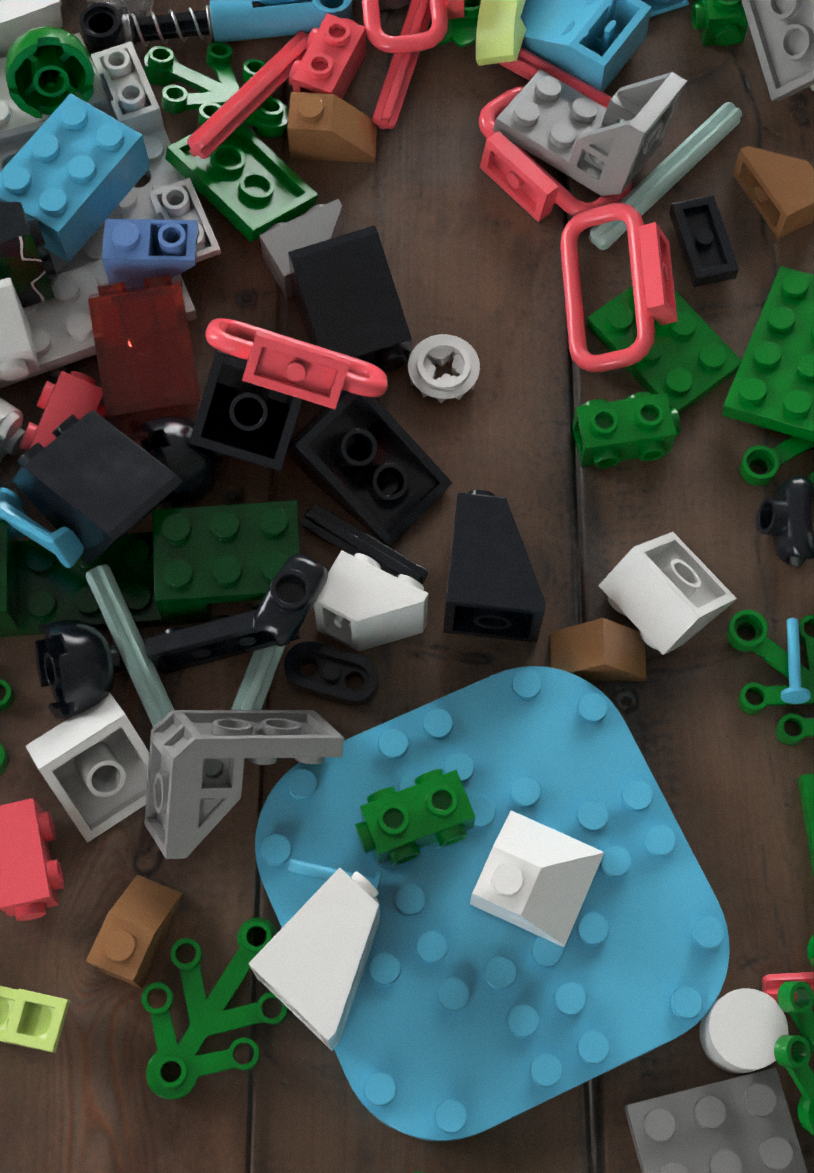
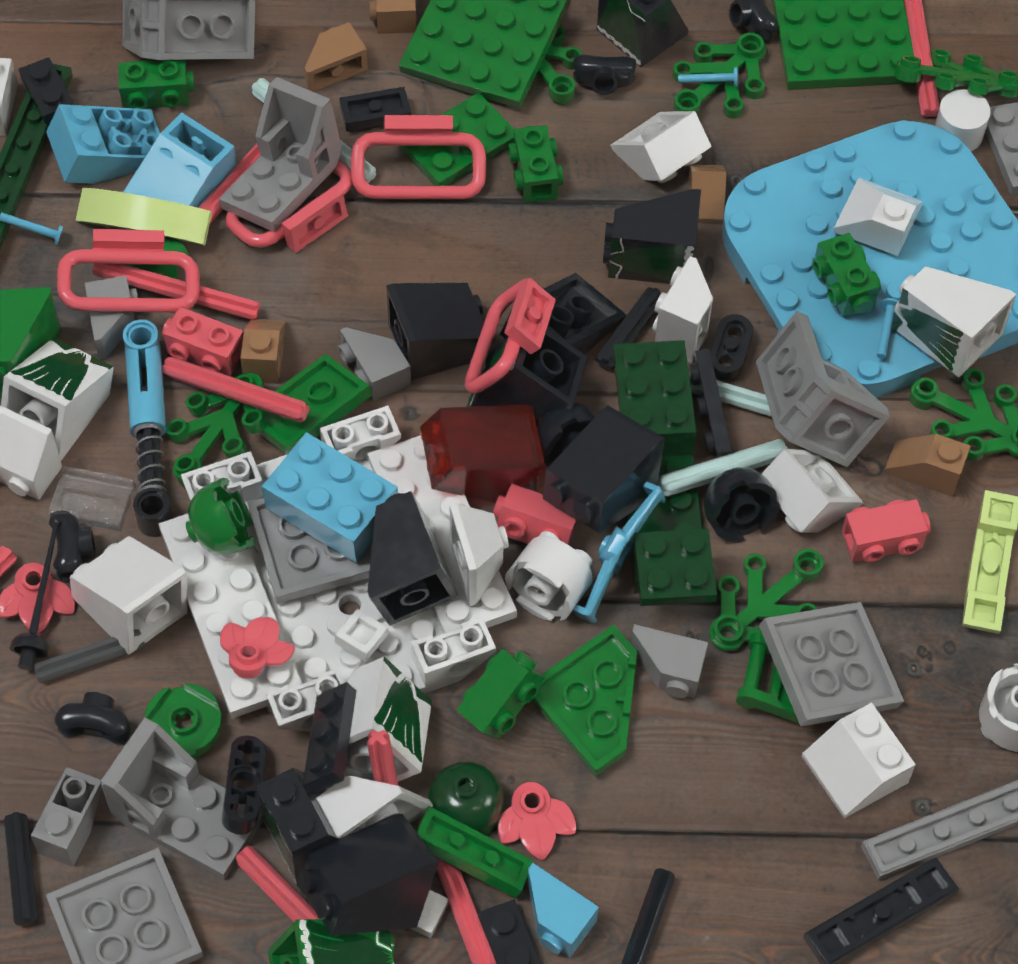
camera: 90 degrees left, 10 degrees down
(147, 248) = (399, 441): medium blue slope -> none
(290, 598) = (700, 333): black piece -> none
(439, 350) = (476, 264): white gear -> none

